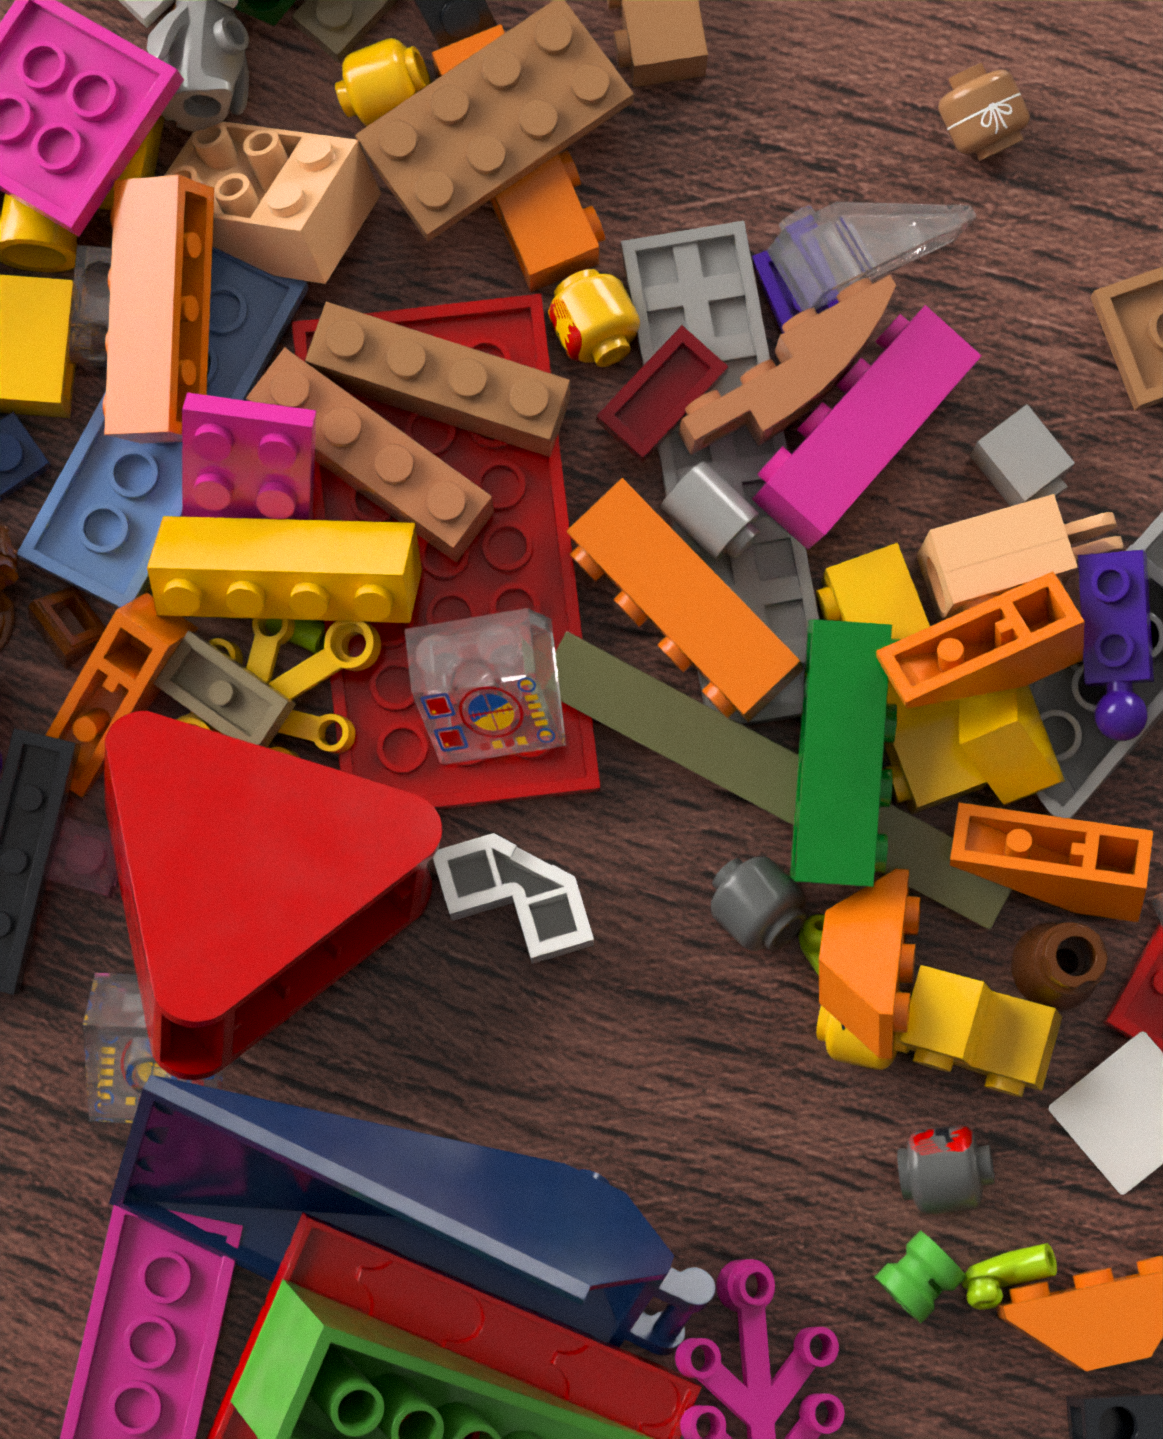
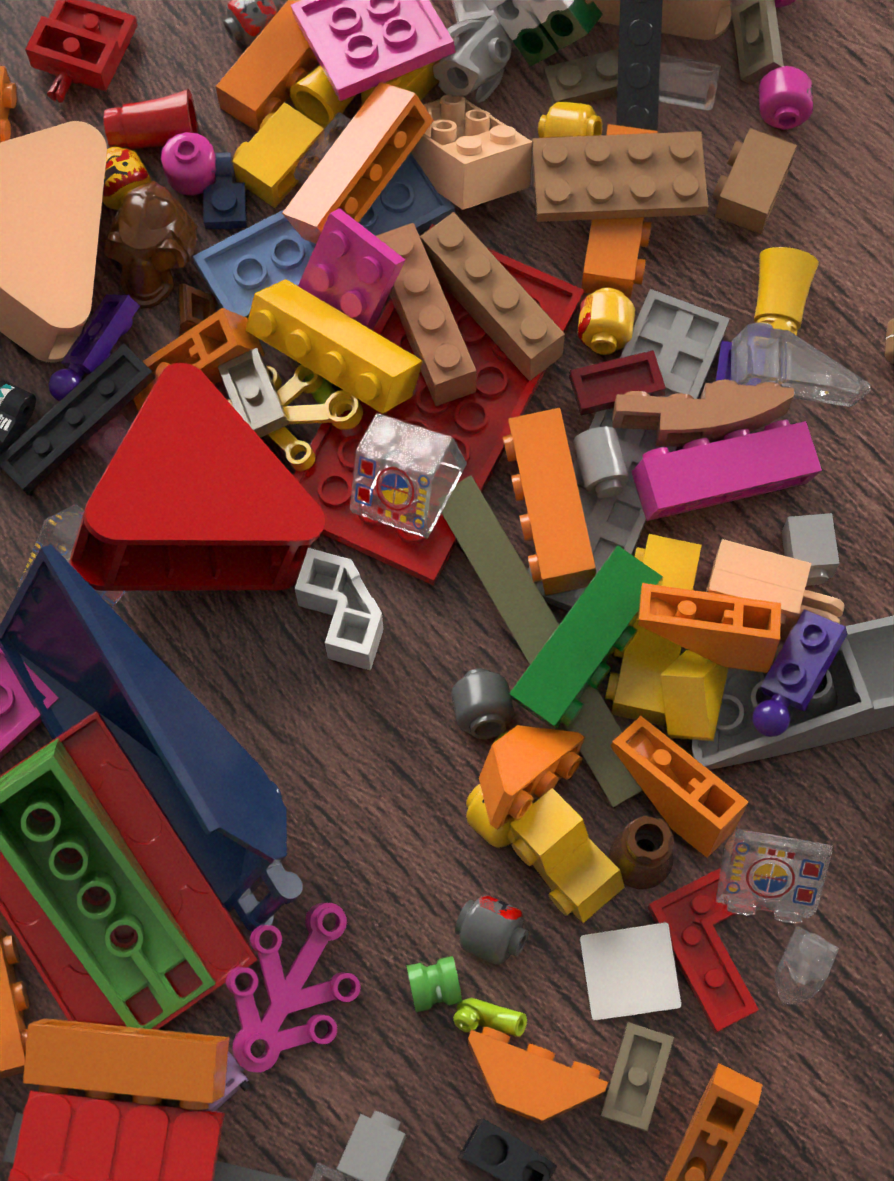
camera: 35 degrees right, 10 degrees down
(787, 146) = (784, 286): none -> yellow plant

